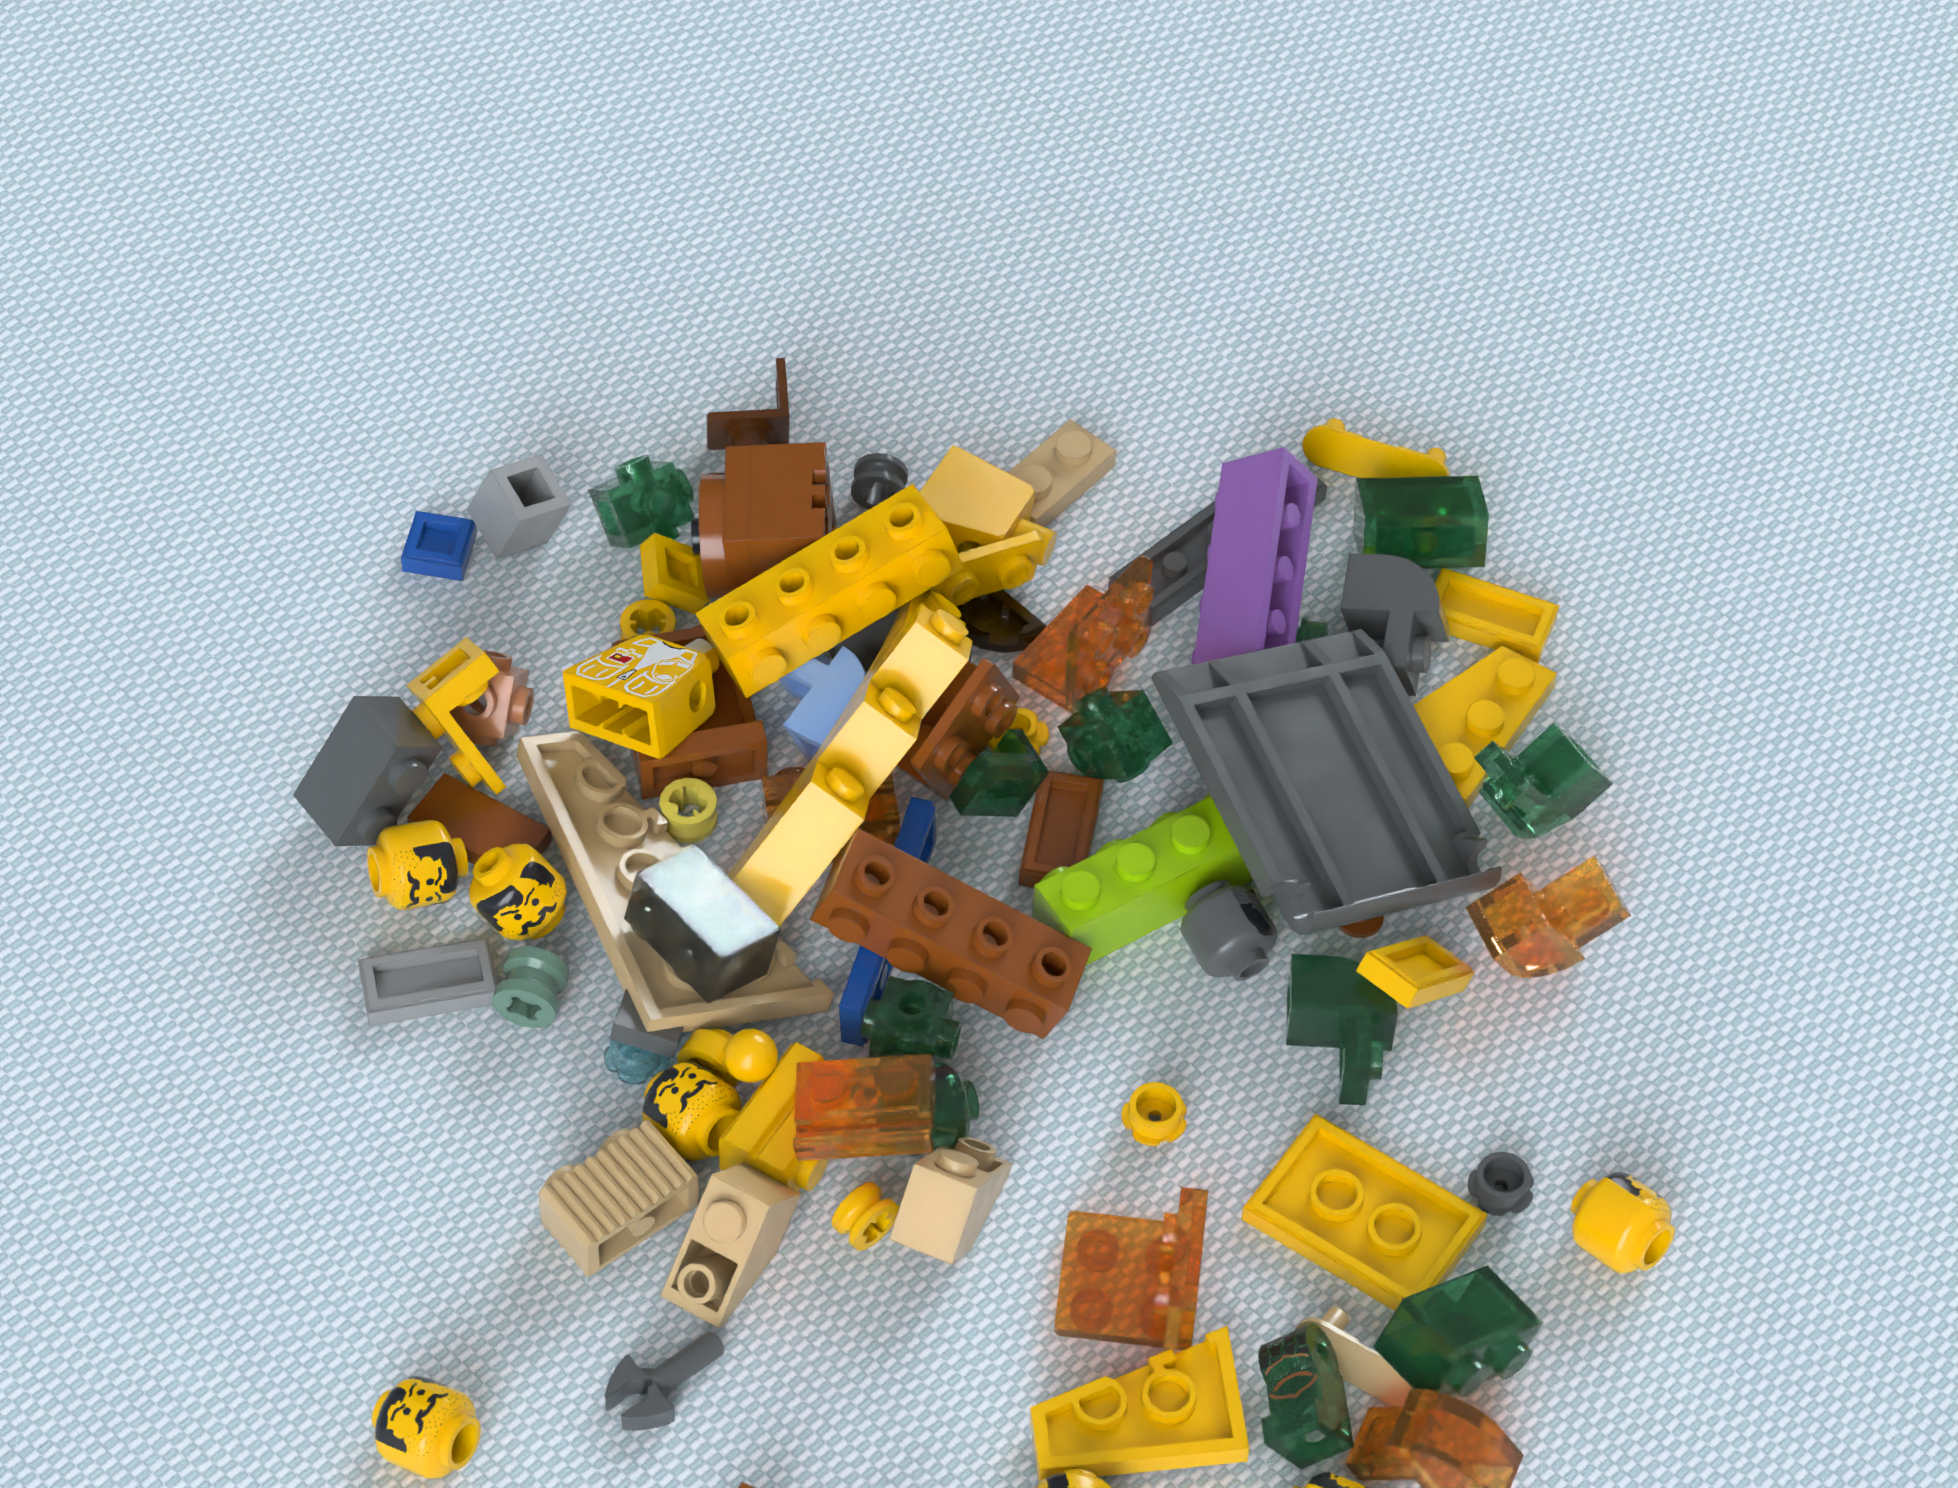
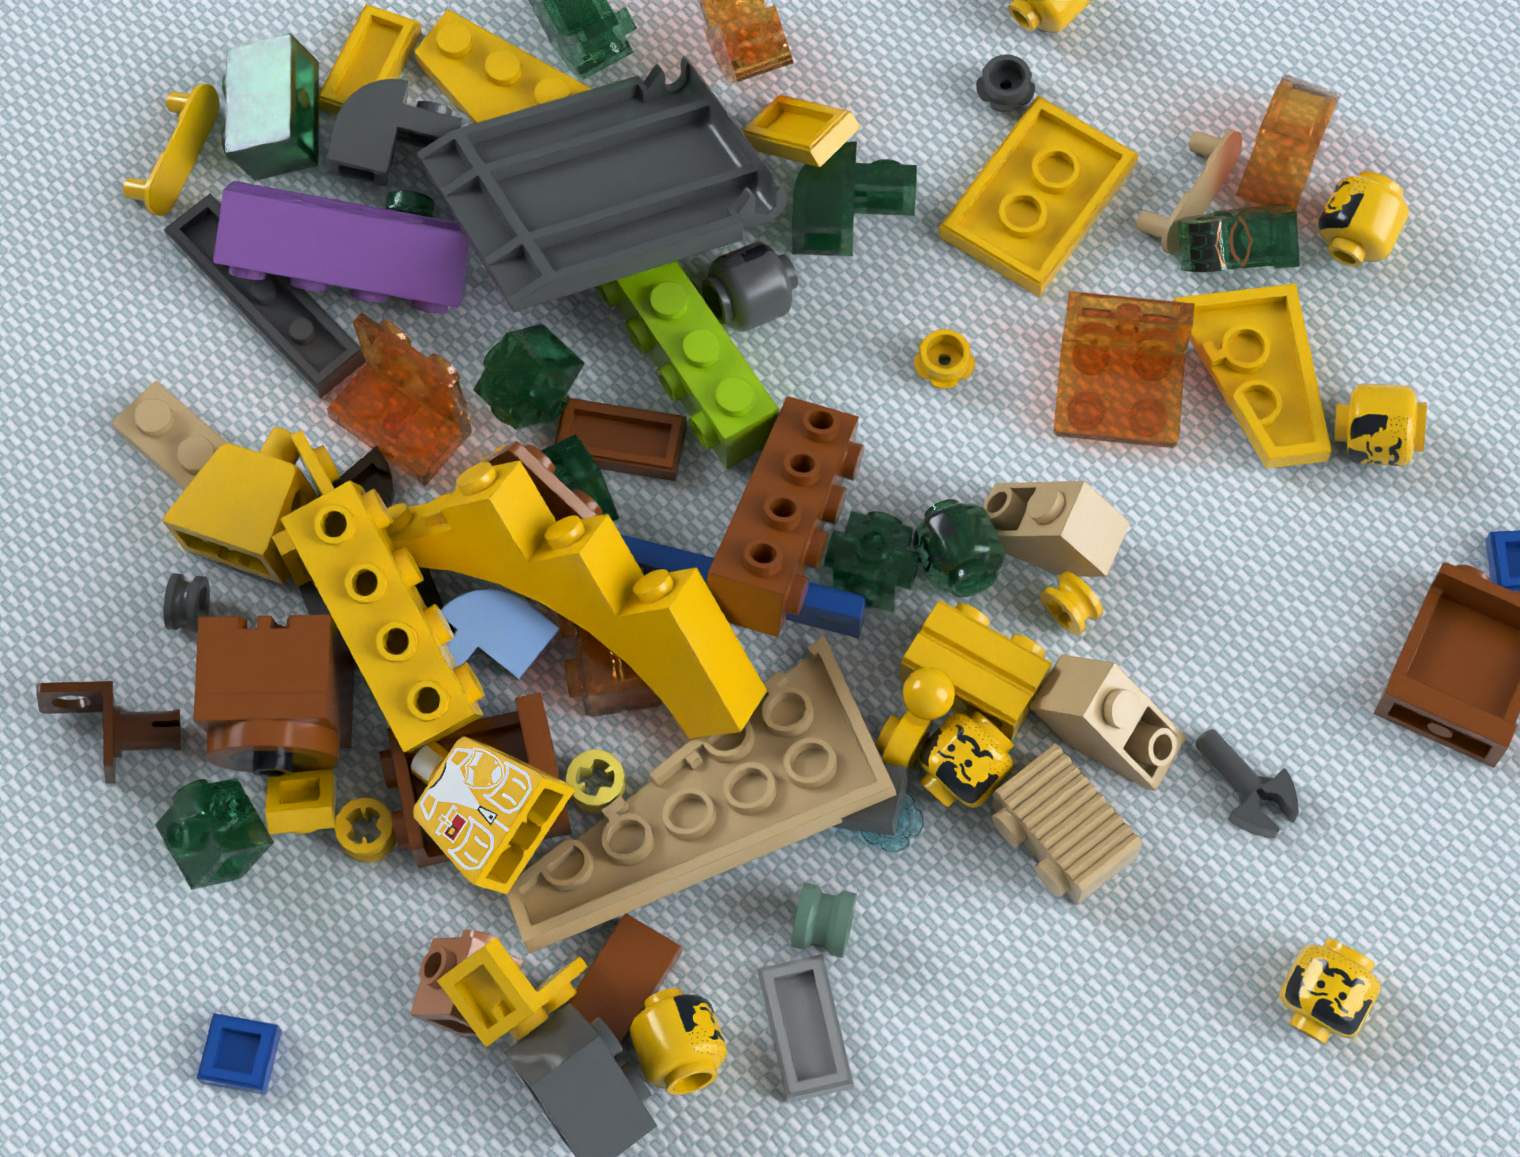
camera: 85 degrees left, 15 degrees up
(518, 892) = (717, 934): yellow head -> none
(519, 506) = (216, 957): light grey brick -> none
(702, 924) = (781, 740): clear smoke brick -> none
(864, 1107) = (992, 584): clear orange plate -> none
(1459, 1334) = (1185, 110): clear green brick -> none

